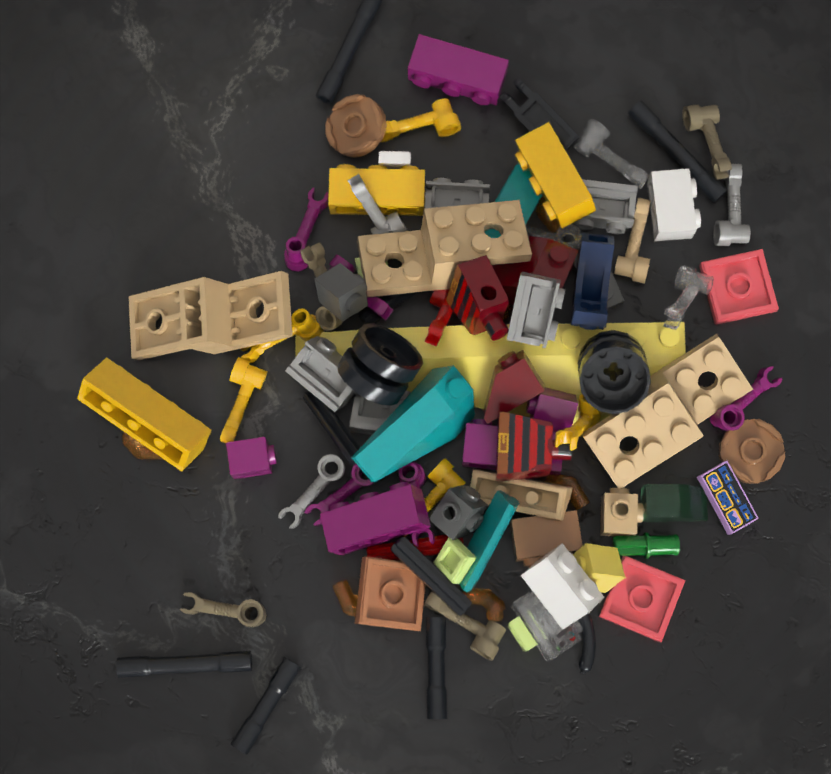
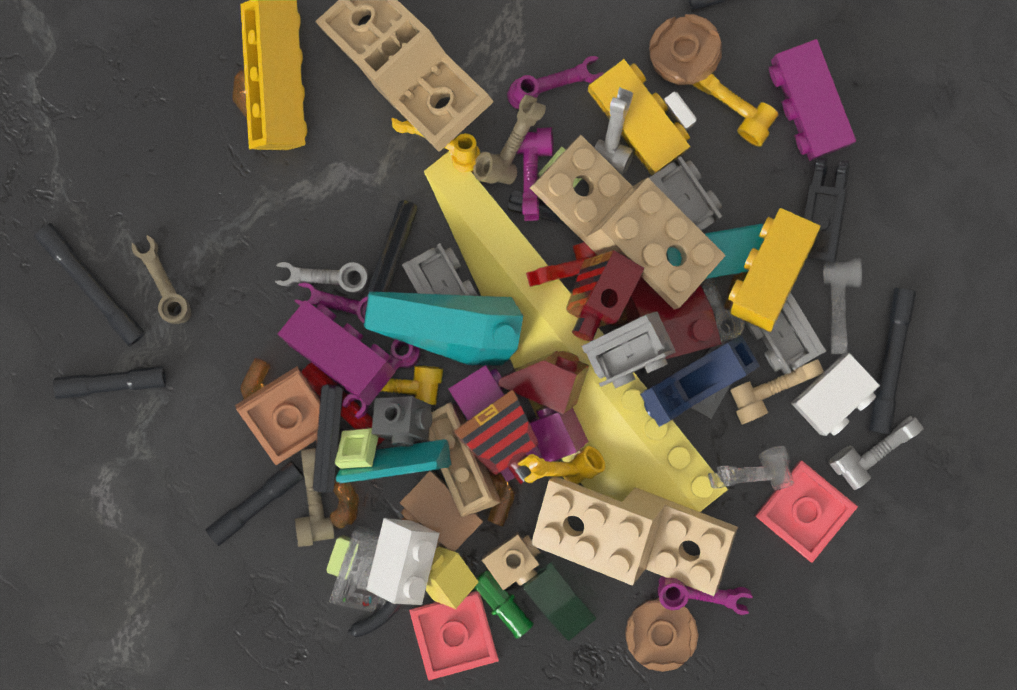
camera: 50 degrees right, 10 degrees up
(248, 377) = (379, 139): yellow brick -> none
(250, 457) = (309, 198): magenta brick -> none
(318, 372) = (434, 205): light grey hinge -> none
(341, 291) = (514, 163): dark grey brick -> none
(379, 364) = (472, 250): black wheel -> none
(618, 389) = (614, 475): black wheel -> none
(704, 119) = (942, 362): dark tan brick -> none
(727, 497) = (601, 644): tile -> none

